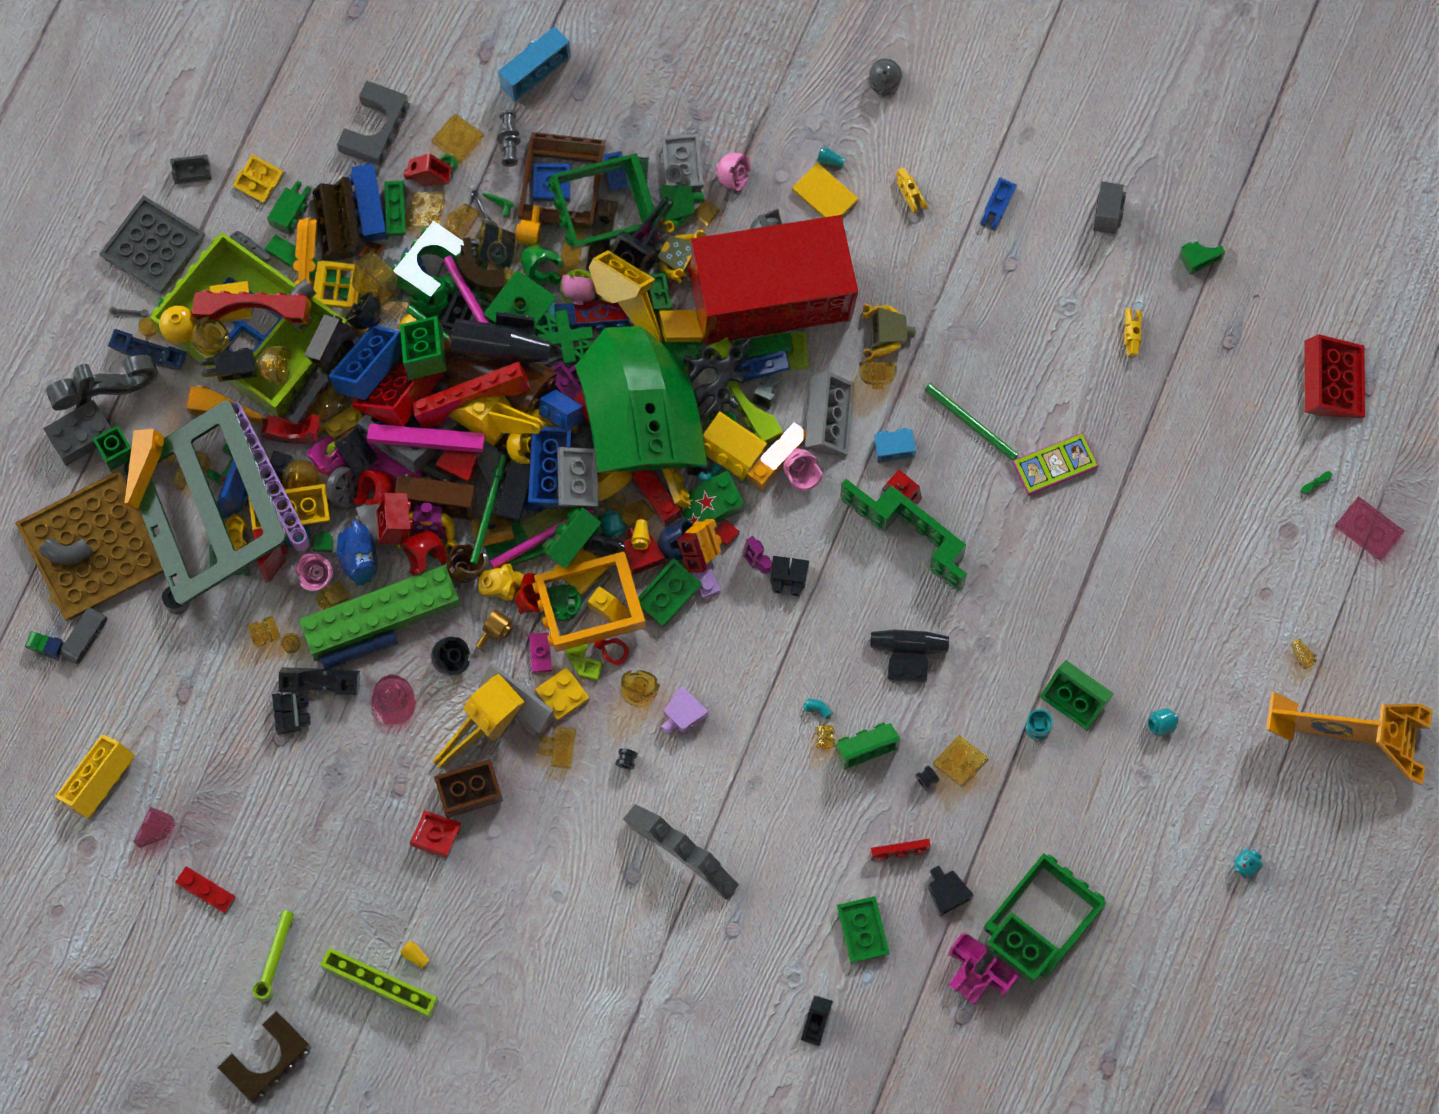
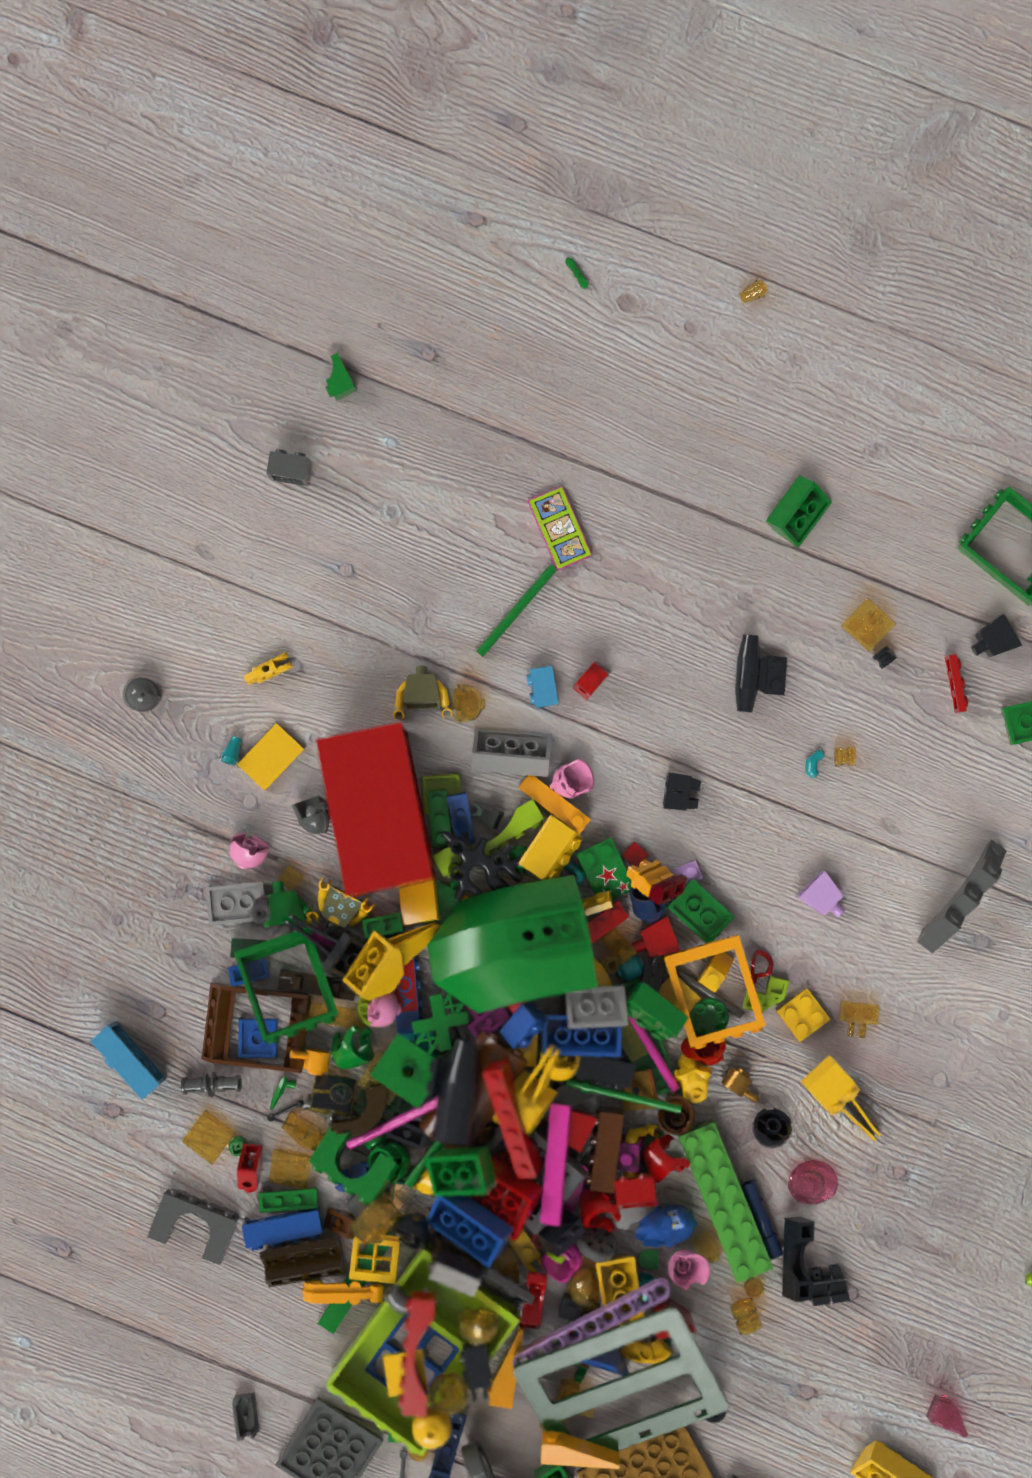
camera: 90 degrees left, 15 degrees up
(205, 890) = (1005, 1360): red plate -> none
(251, 246) = (334, 1349): dark grey hinge -> none
(258, 178) = (254, 1343): yellow slope -> none
(289, 208) = (288, 1310): green hinge -> none
(435, 834) = (950, 1137): red hinge -> none
(468, 788) = (905, 1106): reddish brown brick -> none
(533, 713) = (827, 1042): light grey slope -> none
(540, 652) = (766, 1038): dark pink plate -> none
(626, 758) = (870, 950): black wheel -> none
(639, 688) = (801, 939): clear yellow cylinder -> none
(640, 536) = (646, 941): yellow cone -> none
(754, 555) = (661, 826): magenta hinge -> none
(867, 745) = (855, 715): green slope -> none
(893, 504) = (613, 693): green bracket -> none
(998, 201) = (279, 580): blue hinge -> none
(1038, 724) = (831, 548): teal wheel -> none
(1132, 332) = (420, 448): yellow hinge -> none
(1163, 721) = (825, 428): teal head -> none
(1248, 863) = (964, 351): teal head -> none
(1334, 377) = (468, 250): red slope -> none
(1369, 528) = (624, 223): clear pink tile -> none
(1392, 733) = (847, 204): light orange piece -> none

